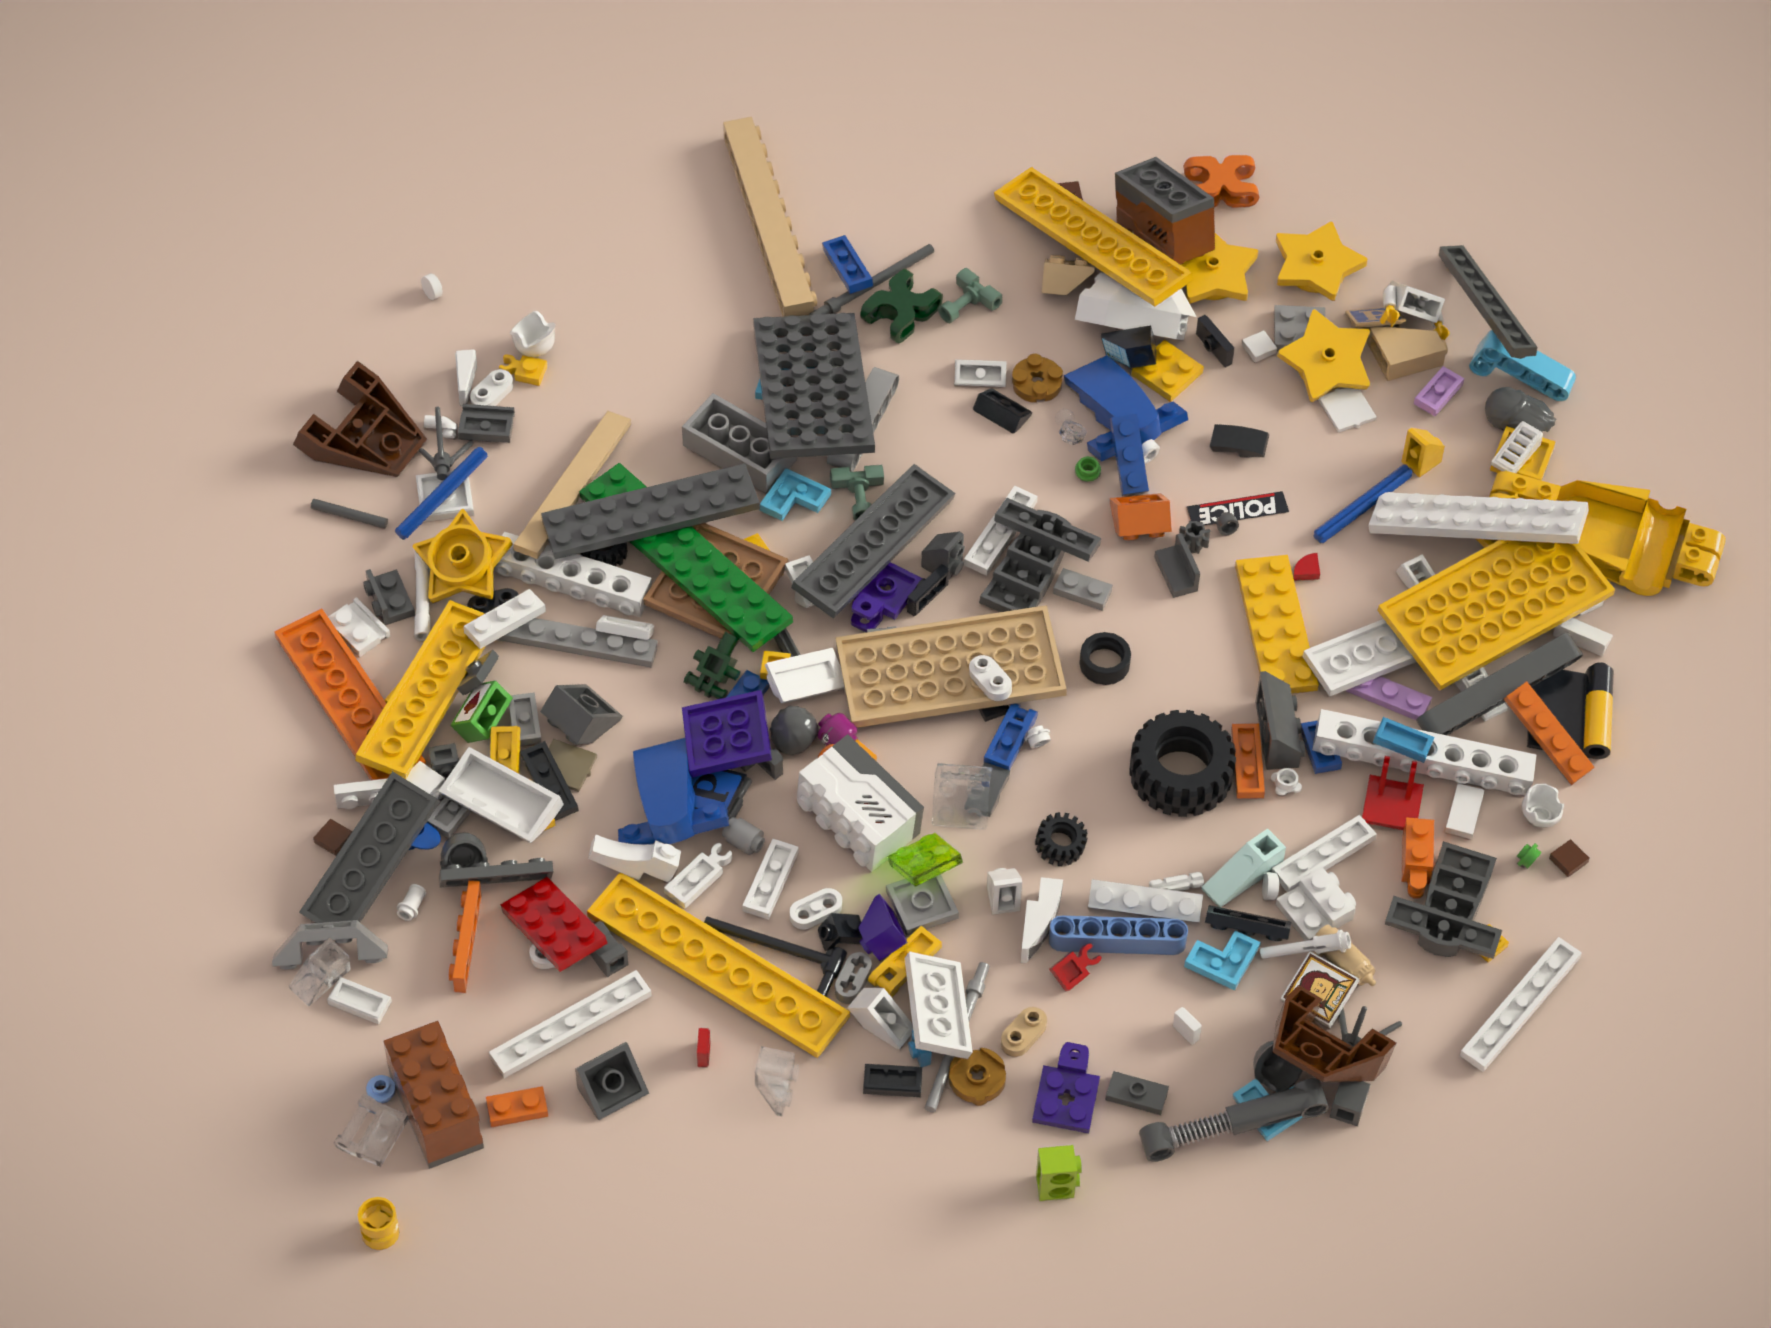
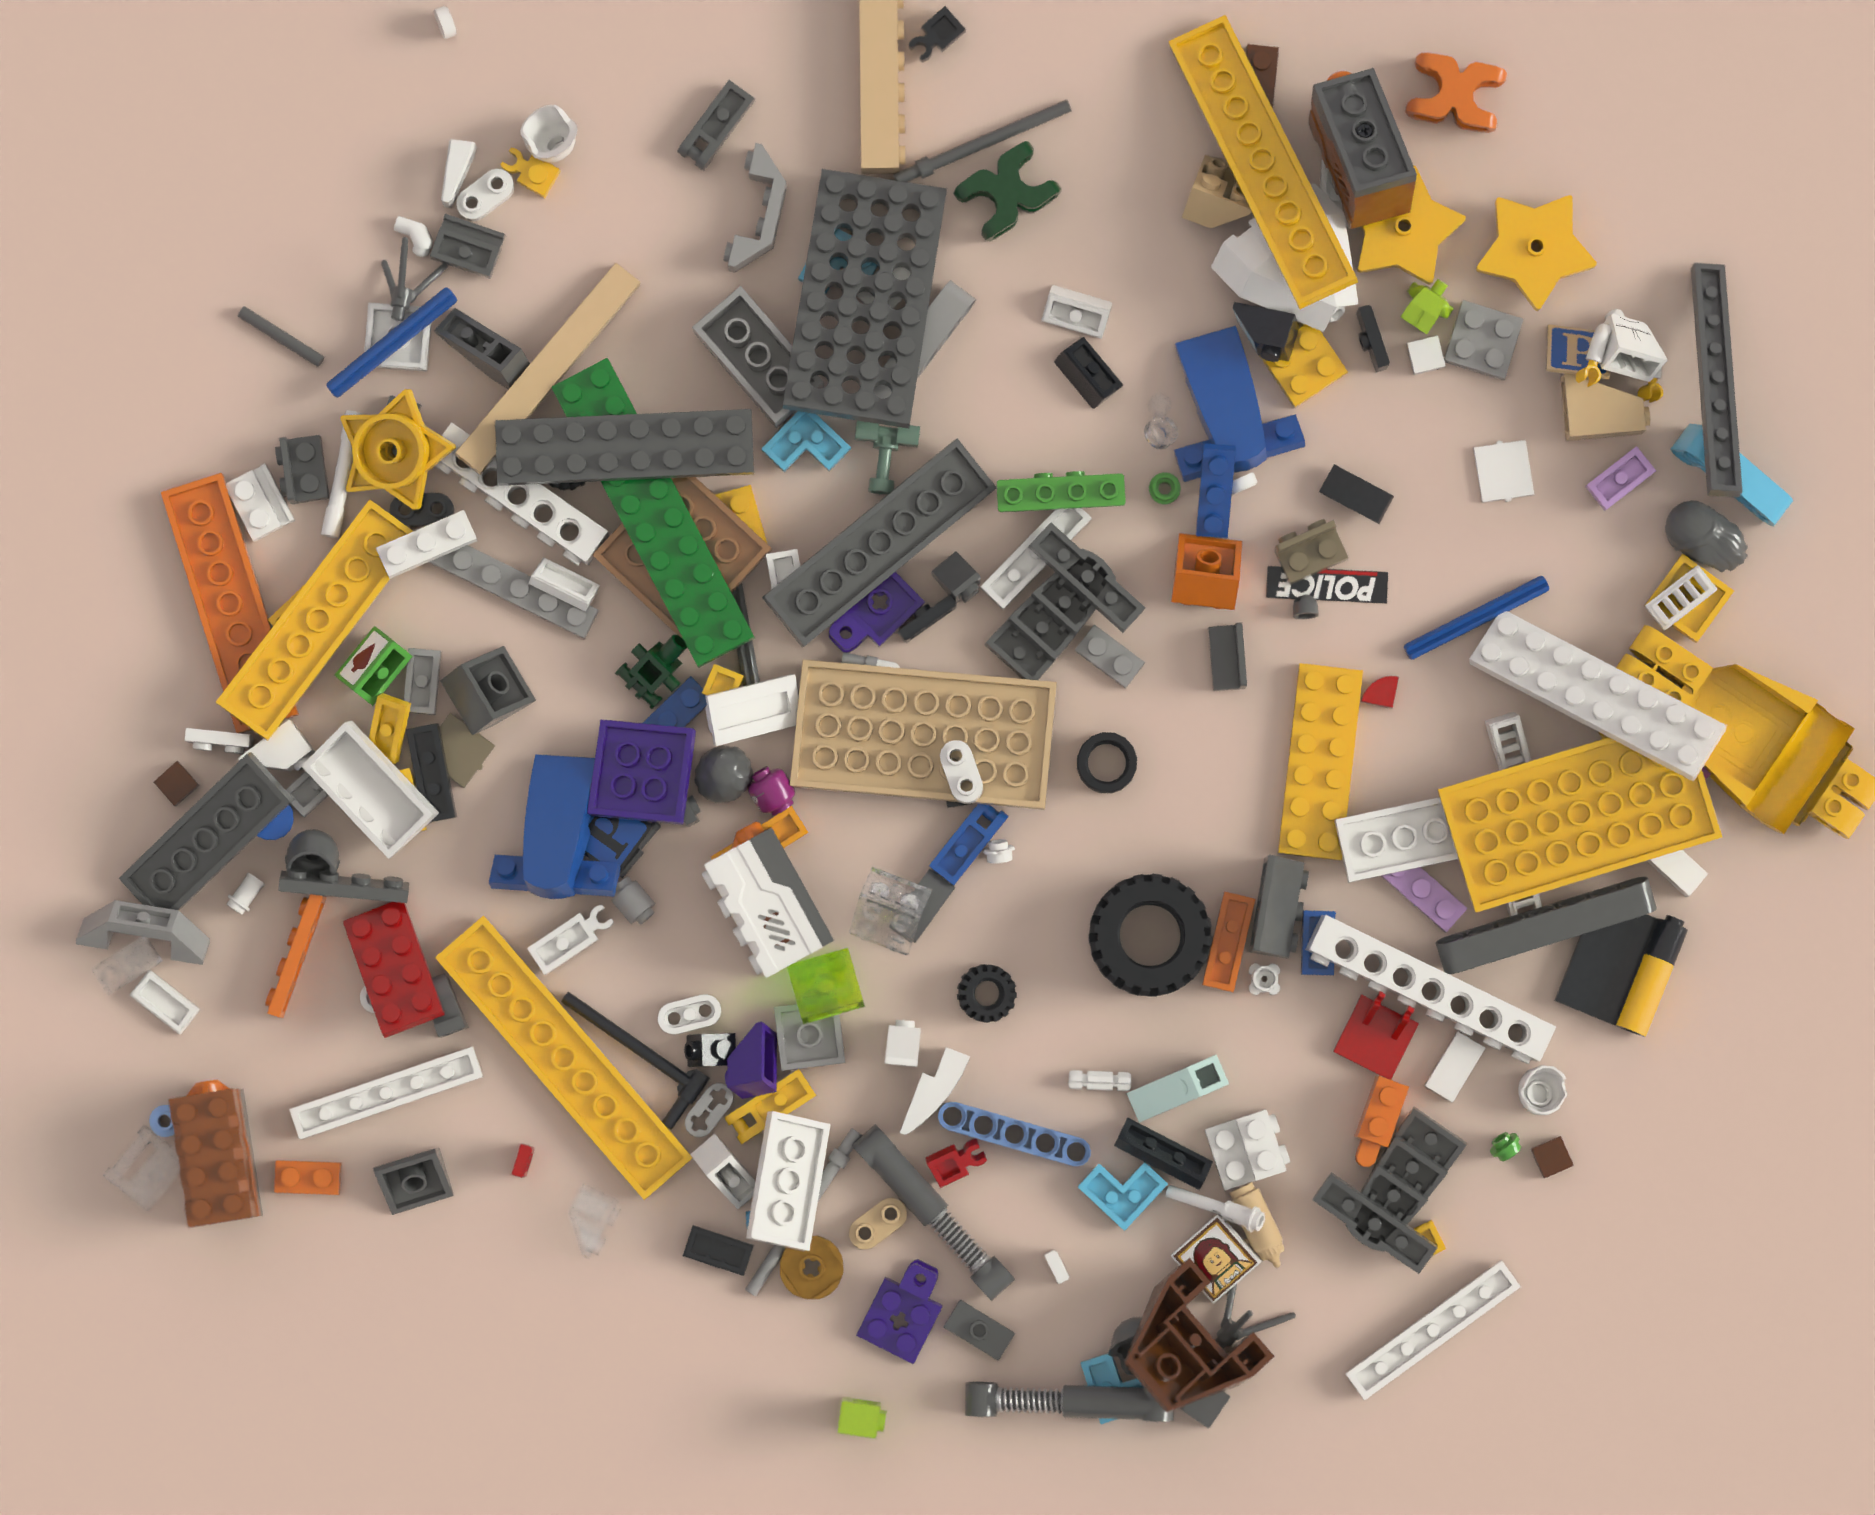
camera: 15 degrees right, 30 degrees up
(372, 437) = (330, 230): reddish brown wedge -> none
(378, 1223) = (129, 1290): yellow wheel -> none
(443, 759) = (319, 718): dark grey bracket -> none
(477, 672) = (380, 612): dark grey plate -> none
(519, 484) = (483, 348): none -> dark grey slope
(635, 859) = (502, 905): white slope -> none
(662, 309) = (716, 124): none -> dark grey plate
(713, 331) = (745, 249): none -> light grey slope
(770, 879) = (648, 963): white plate -> none
(817, 220) = (940, 31): none -> black plate
(847, 264) = (957, 114): blue plate -> none
(973, 293) = (1102, 191): sand green bar -> none
(1007, 478) = (1066, 492): none -> bright green bracket
(1009, 974) = (931, 1209): none -> dark grey piece
(1041, 367) = (1141, 356): pearl gold plate -> none
(1145, 900) = (1058, 1096): white plate -> none
(1195, 536) = (1266, 614): dark grey gear -> none
(1216, 485) = (1311, 551): none -> dark tan bracket
(1248, 311) = (1426, 305): none -> lime piece
(1270, 886) = (1202, 1113): white tile -> none
(1324, 373) = (1497, 379): yellow plate -> none
(1325, 852) = (1276, 1085): white plate -> none
(1403, 739) = (1407, 979): dark azure tile -> none
(1422, 451) = (1570, 566): yellow slope -> none
(1549, 733) = (1582, 999): orange plate -> none

